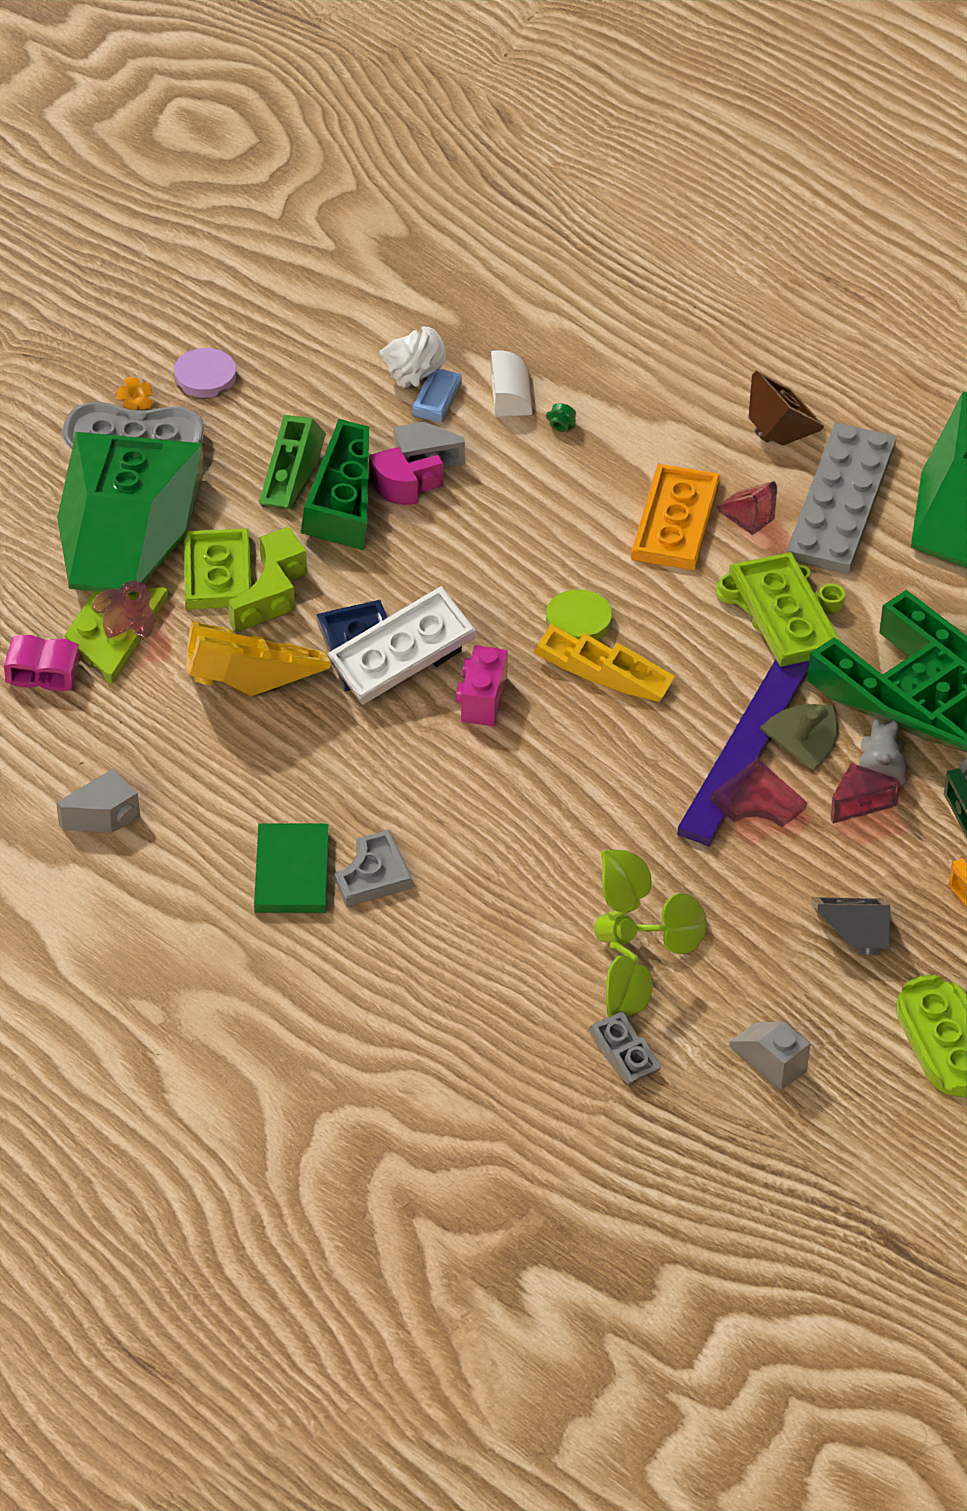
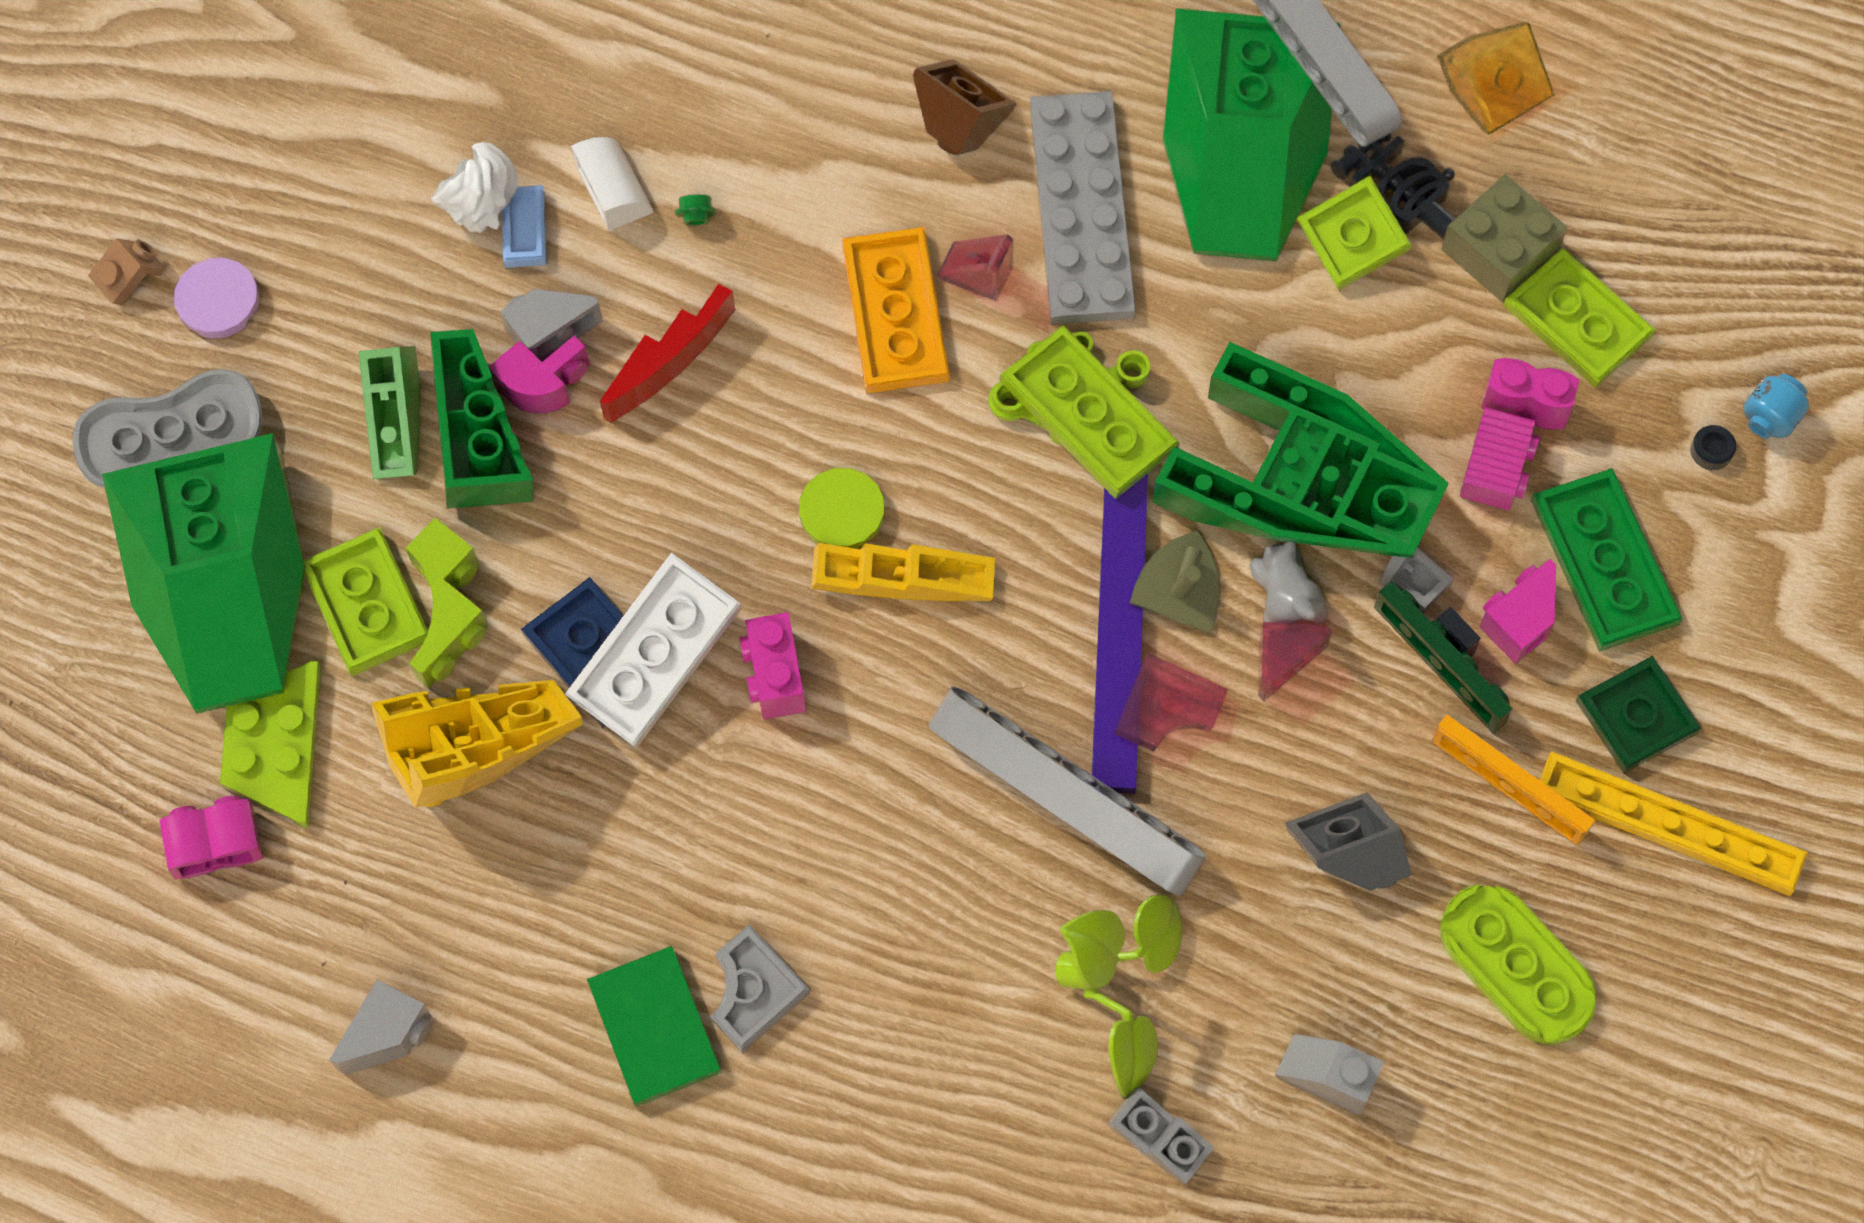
camera: 20 degrees left, 20 degrees up
(122, 613) = (285, 732): plate -> none
(135, 395) = (144, 369): light orange plant -> none
(151, 335) = (124, 268): none -> medium nougat bracket
(493, 493) = (658, 363): none -> red slope
(658, 821) = (1067, 791): none -> light grey beam

